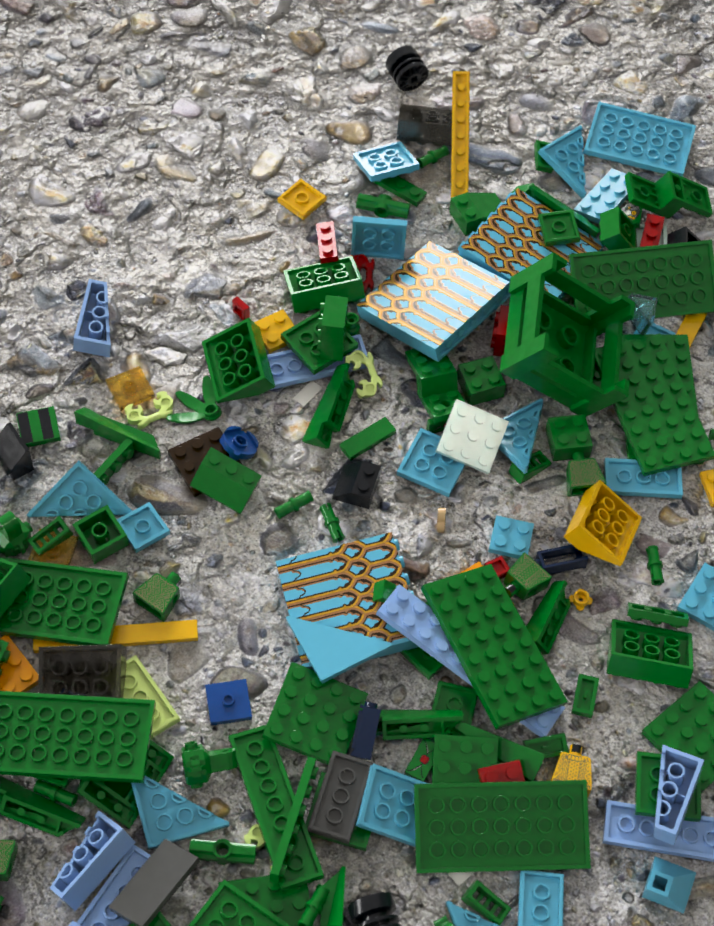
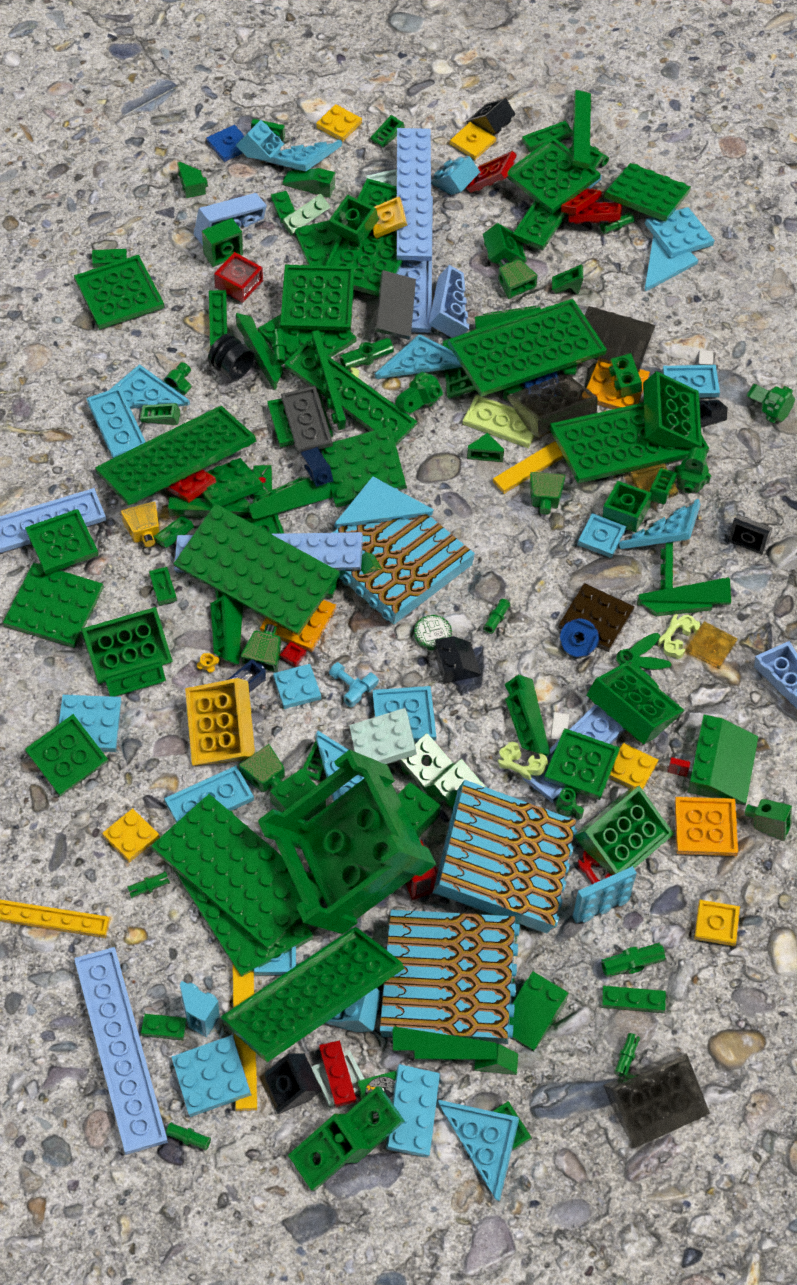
camera: 150 degrees right, 0 degrees up
(38, 426) = (754, 572): tile -> none
(184, 671) = (485, 449): none -> green slope
(203, 234) = (771, 818): none -> green torso
(203, 298) = (723, 760): none -> green slope
(225, 480) = (564, 600): green slope -> none
(228, 702) = (436, 449): blue plate -> none
(255, 261) = (706, 826): none -> light orange plate
(327, 242) = (655, 883): plate -> none
(332, 327) = (569, 747): green brick -> none
(332, 523) = (454, 617): green pin -> none
(359, 522) = (431, 628): none -> tile
(367, 438) = (477, 709): green tile -> none
(386, 161) = (666, 1010): medium azure plate -> none
(389, 805) = (271, 431): medium azure plate -> none
(407, 68) = (732, 1149): black wheel -> none
(441, 519) = (364, 664): tan tile -> none
(459, 507) = (357, 686): none -> medium azure bar
(460, 132) = (611, 1074): yellow tile -> none
(558, 228) = (434, 1005): green tile -> none
(617, 230) = (372, 1048): green brick -> none
(639, 139) = (421, 1218): medium azure plate -> none
(644, 312) = (299, 948): clear light blue slope -> none
(655, 565) = (158, 722): green pin -> none
(669, 884) = (30, 483): medium azure slope -> none
(676, 786) = (54, 526): light blue wedge -> none

